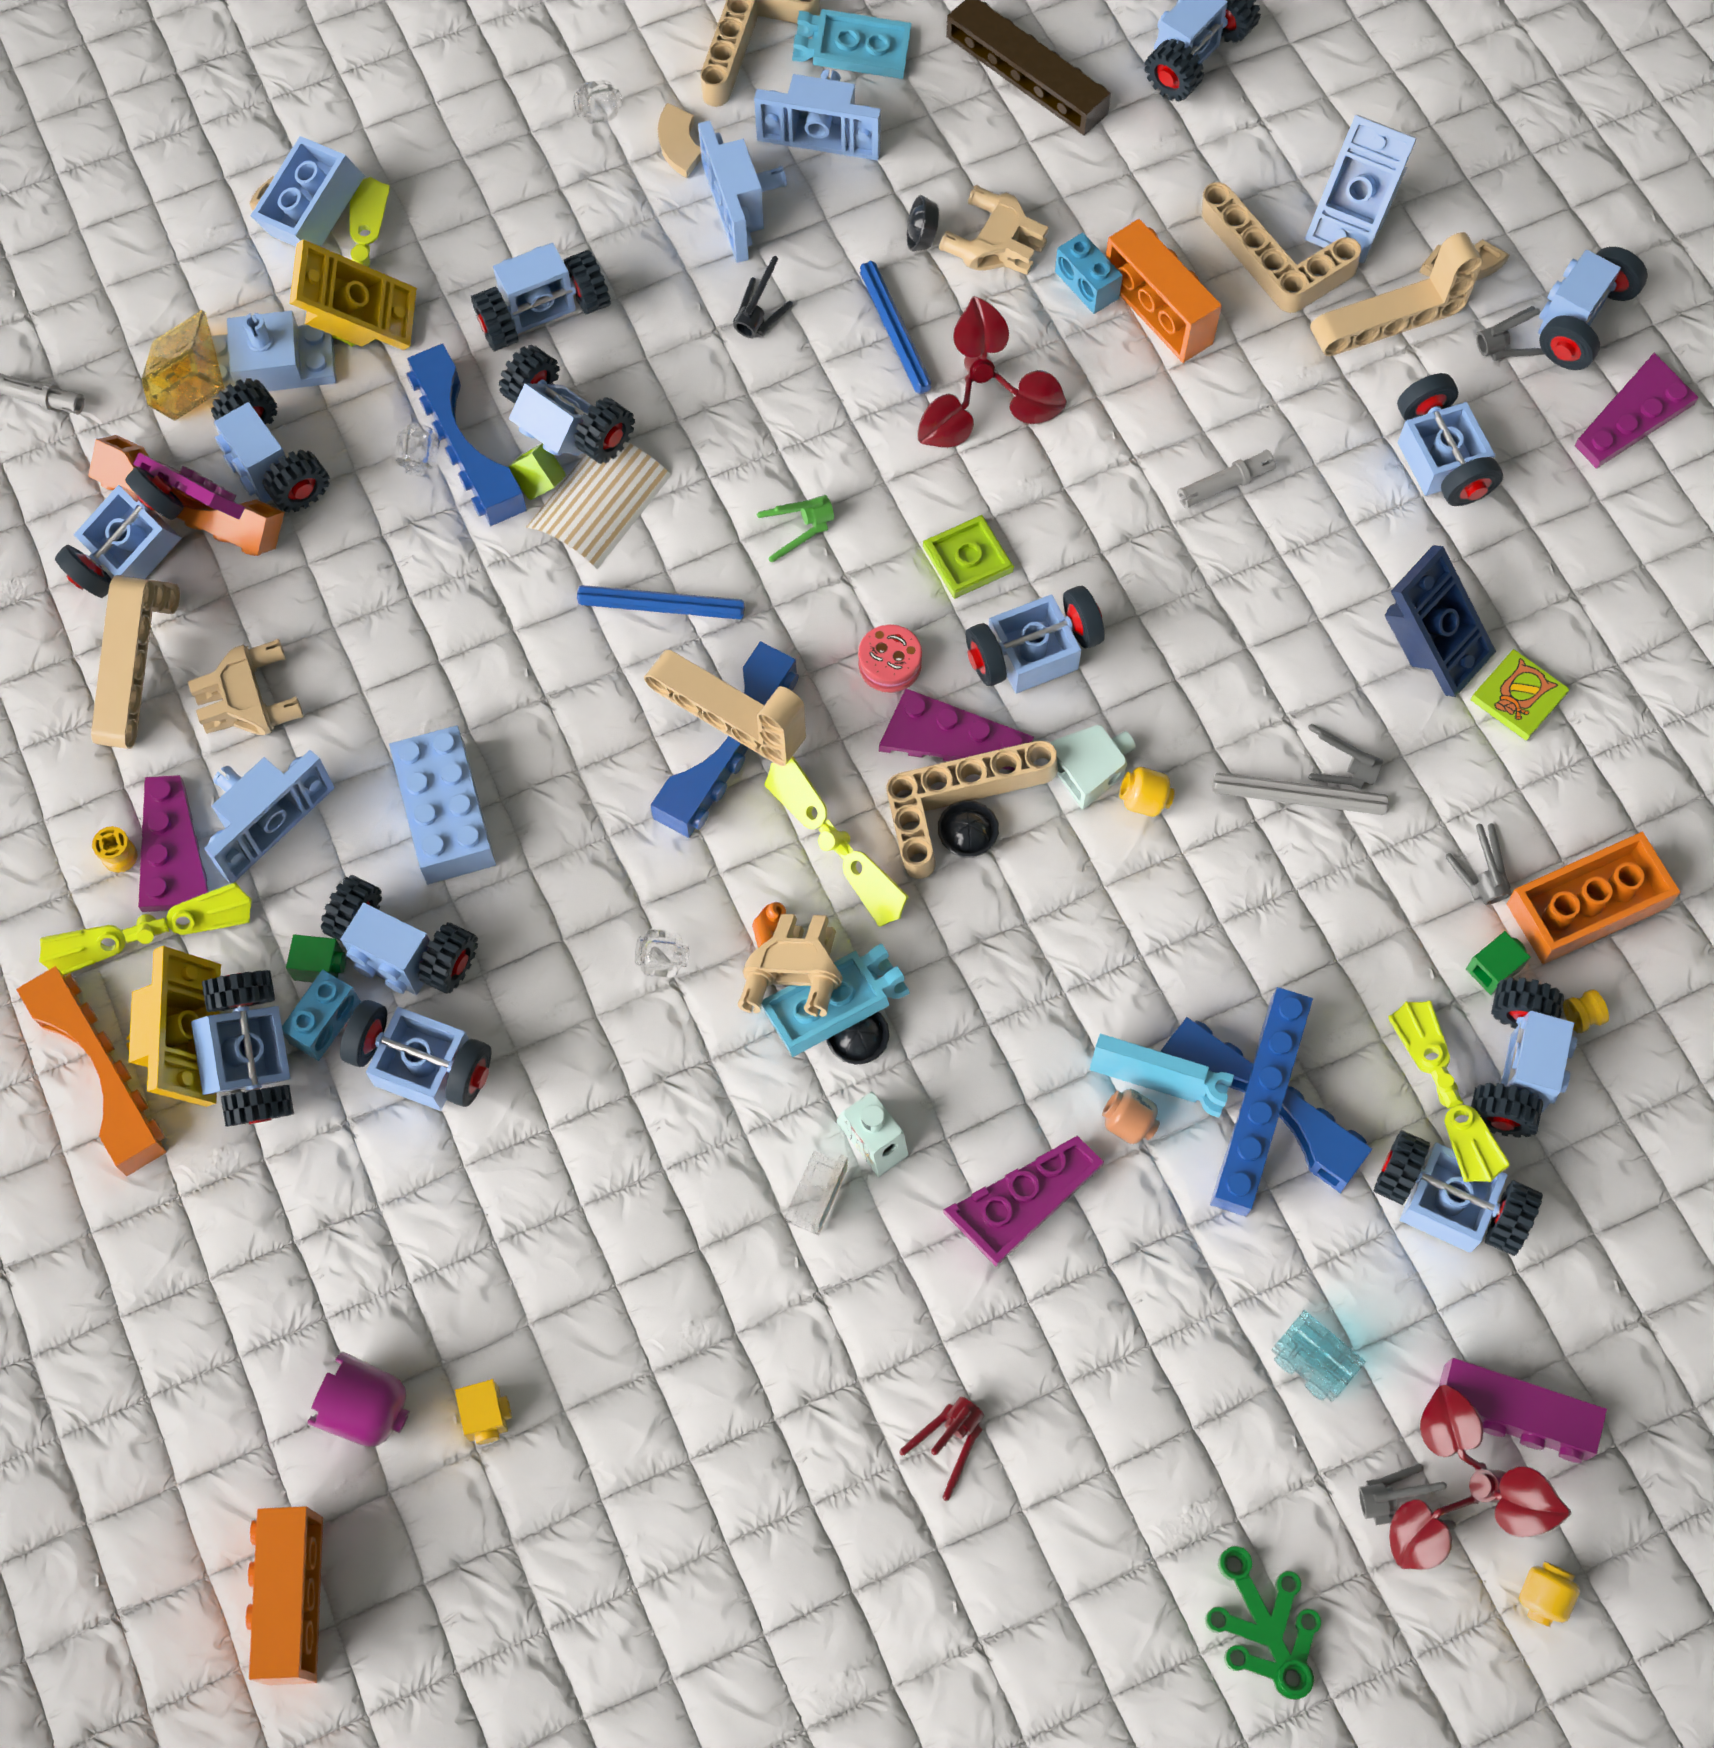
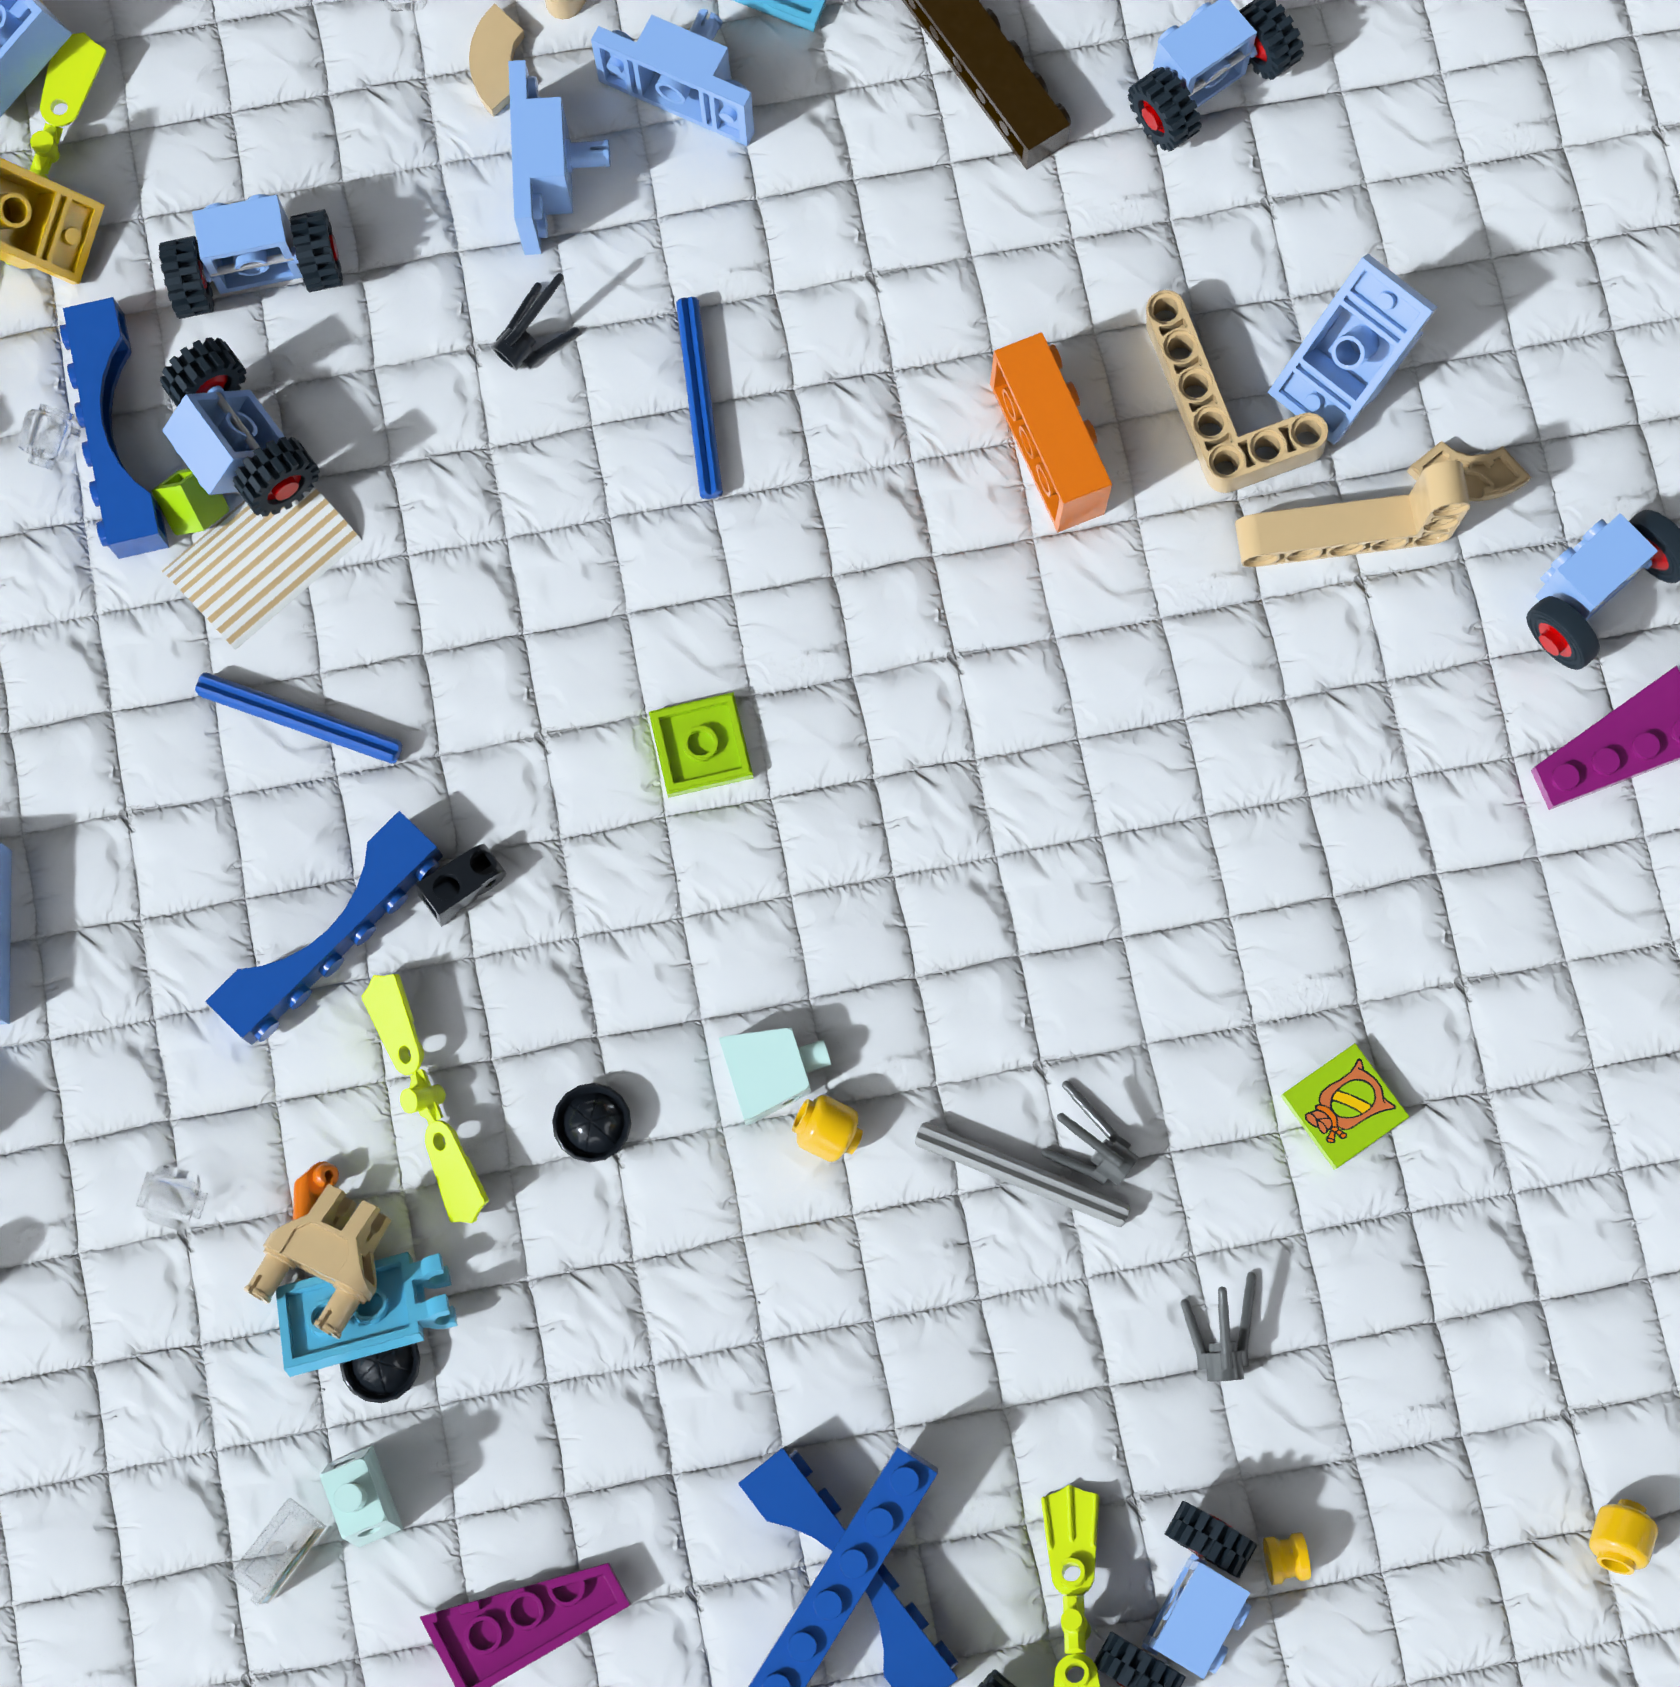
camera: 15 degrees right, 10 degrees up
(767, 729) = (325, 898): tan beam -> none
(813, 511) = (522, 636): bright green plant -> none
(819, 684) = (460, 883): none -> black leg
(890, 658) = (560, 866): coral head -> none
(922, 224) = (770, 261): black hat -> none
(944, 731) = (599, 979): magenta wing -> none
(957, 789) = (588, 1068): tan beam -> none
(976, 334) = (787, 461): dark red plant -> none
(1005, 239) = (869, 298): tan connector -> none
(1035, 640) = (741, 892): brick -> none
(1088, 273) = (966, 380): dark azure brick -> none
(1131, 1116) = (680, 1554): nougat head -> none
(1161, 1073) = (729, 1514): medium azure tile -> none
(1239, 473) = (1060, 716): light grey pin -> none
(1439, 622) = (1261, 998): dark blue brick -> none
(1446, 442) = (1354, 741): brick -> none
(1496, 338) = (1472, 594): dark grey plant -> none
(1498, 961) = (1199, 1466): green brick -> none
(1592, 897) = (1343, 1413): orange brick -> none

